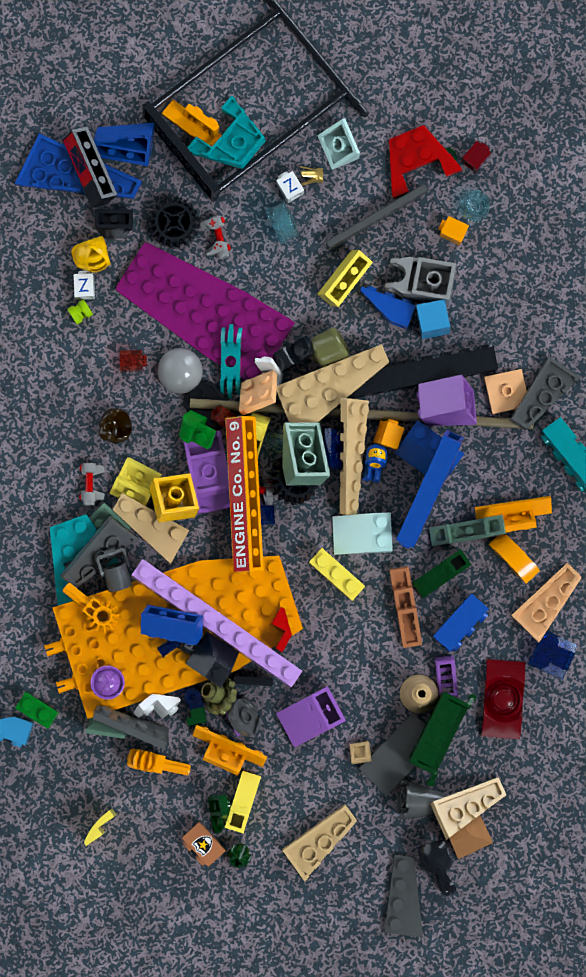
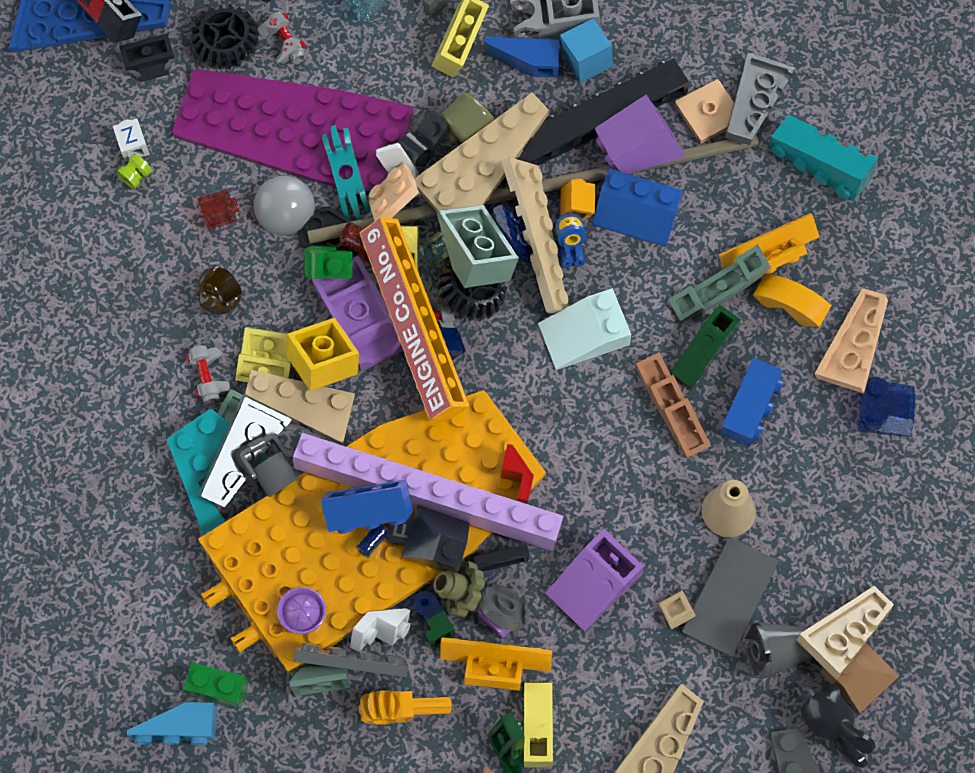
camera: 10 degrees left, 15 degrees down
(91, 255) = (130, 99): yellow helmet -> none
(92, 608) = (253, 519): light orange gear -> none
(336, 574) = (568, 389): light yellow brick -> none
(429, 489) = (654, 239): blue brick -> none
(439, 733) = (774, 546): dark green container -> none
(441, 661) = (744, 473): medium lavender slope -> none
(503, 699) = (843, 484): dark red slope -> none

